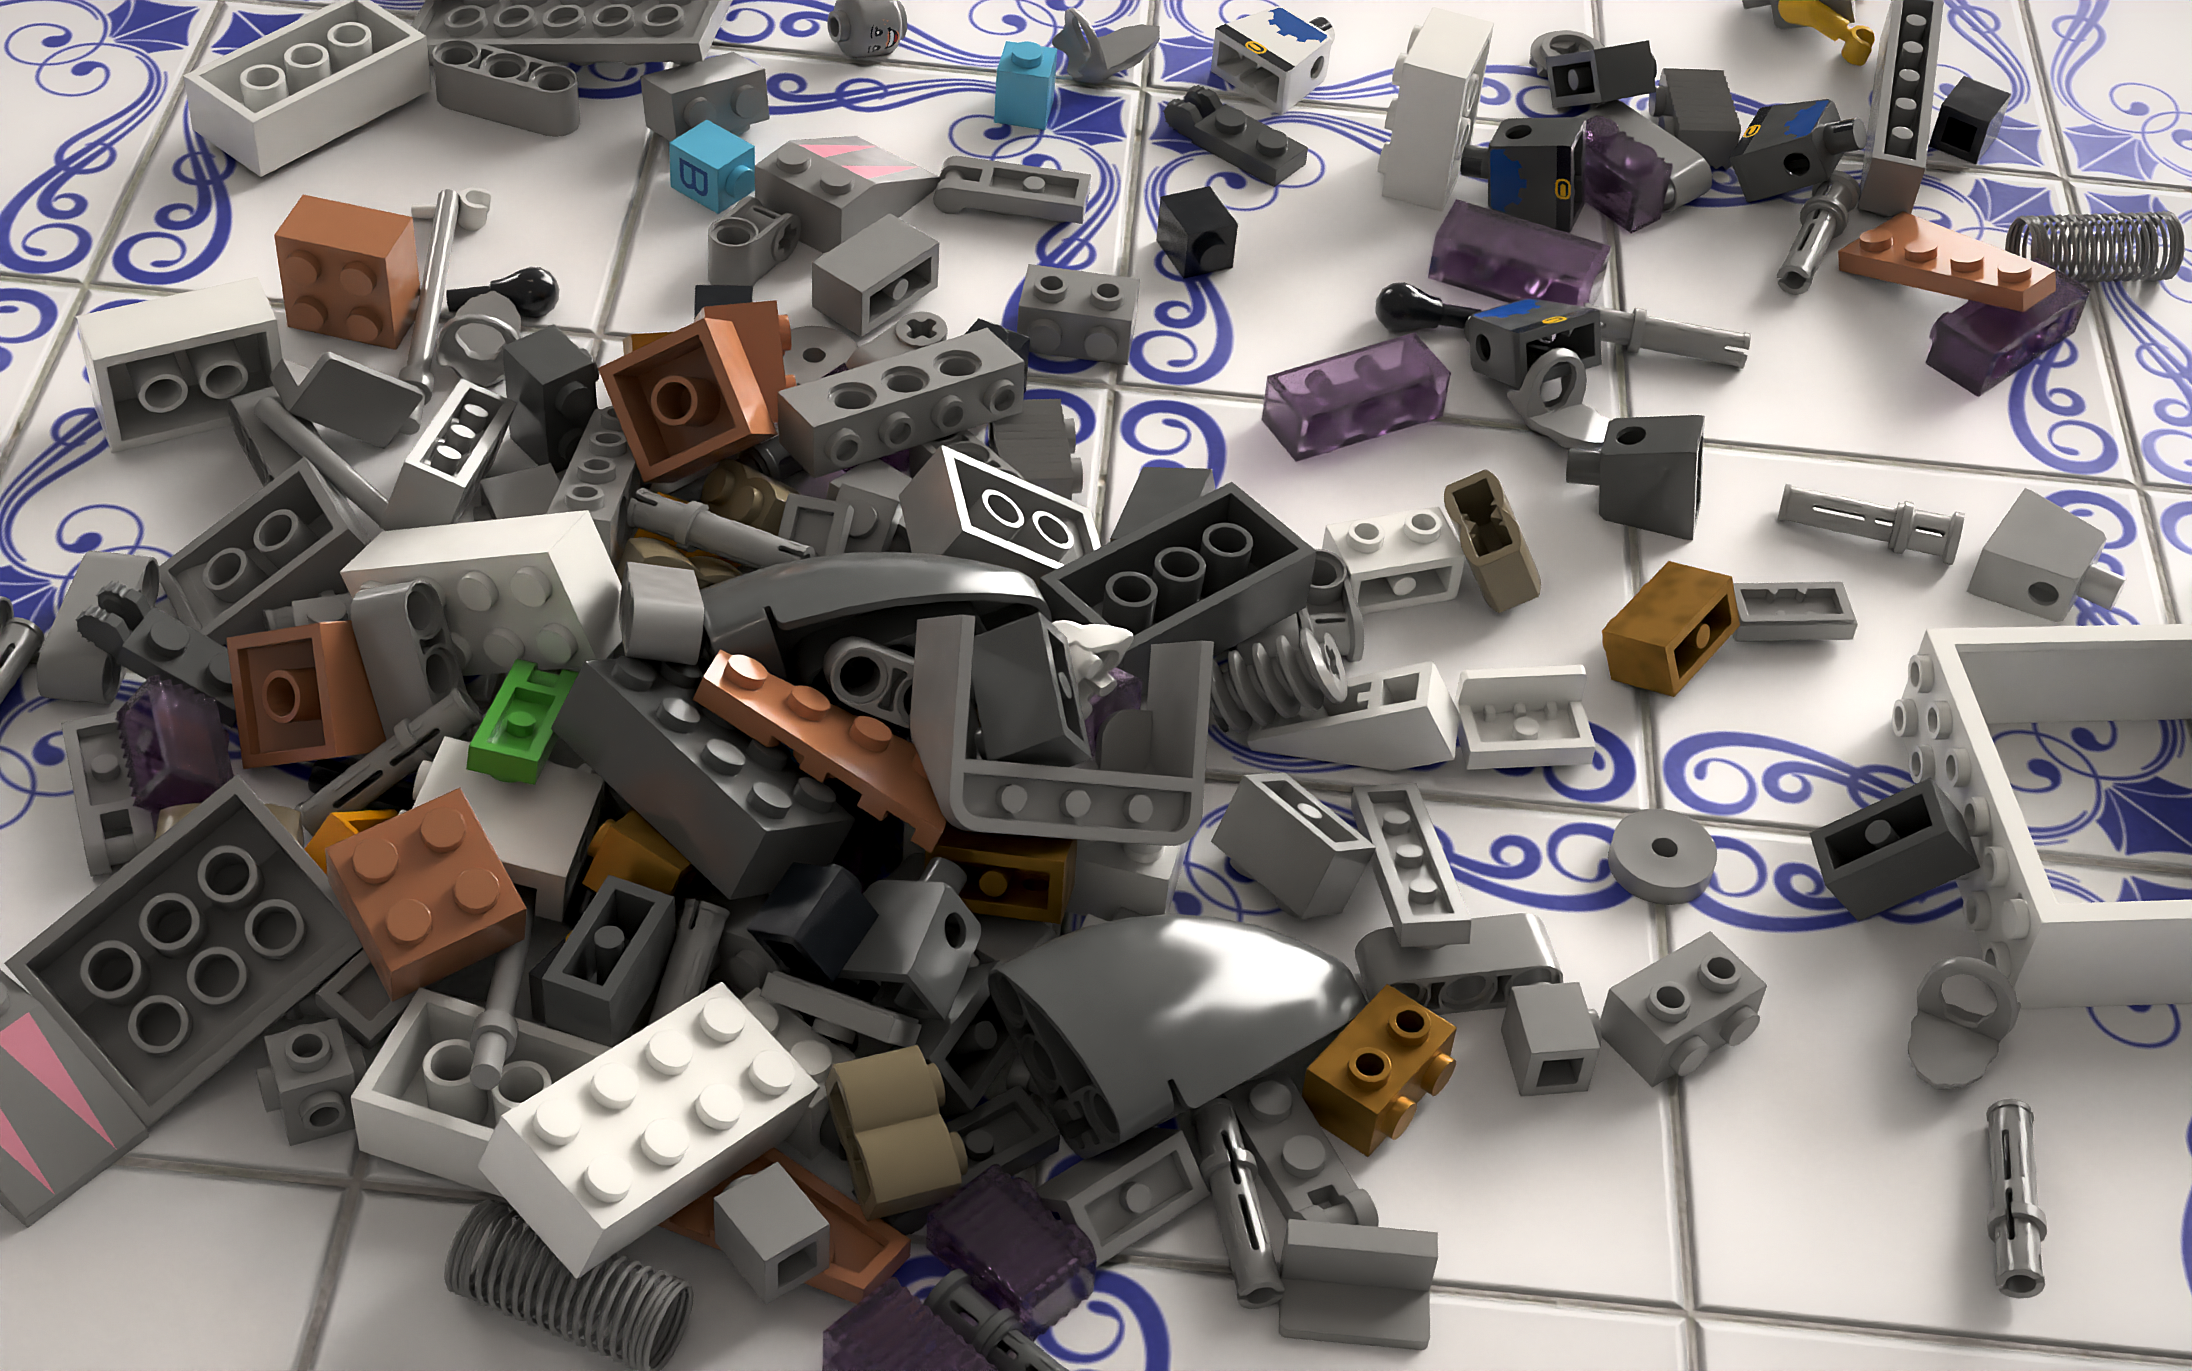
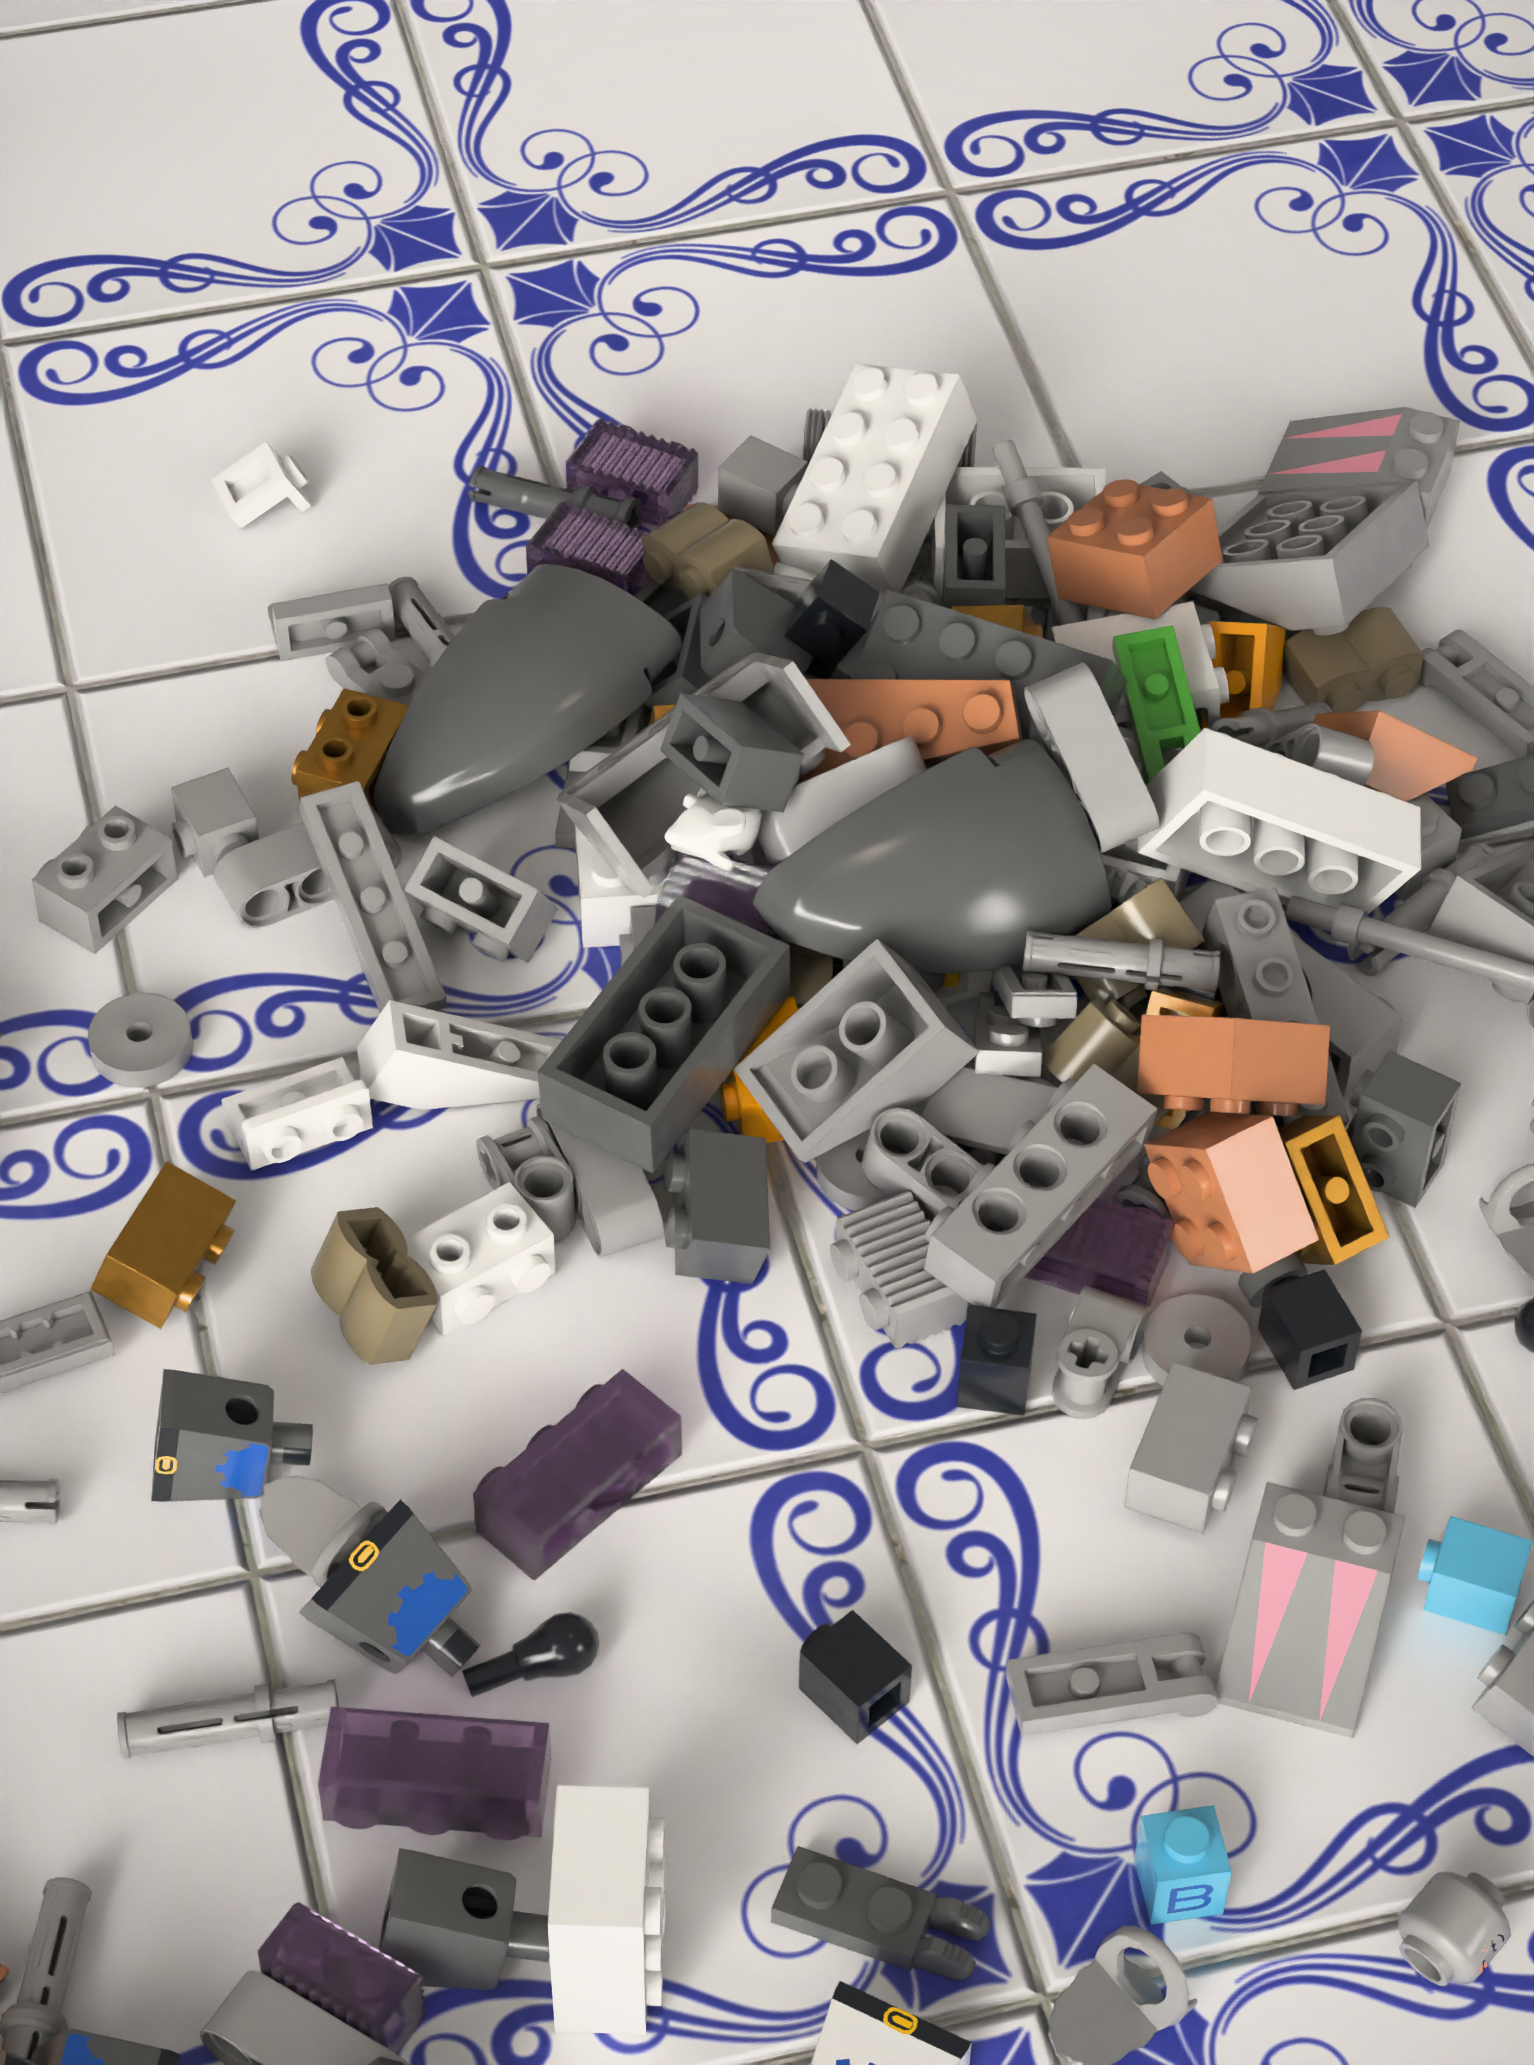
camera: 165 degrees right, 5 degrees up
(172, 745) = (1451, 704): brick -> none
(449, 459) = (1428, 980): light grey brick -> none
(1078, 313) = (939, 1487): light grey brick -> none
(1277, 682) = (523, 1028): light grey piece -> none

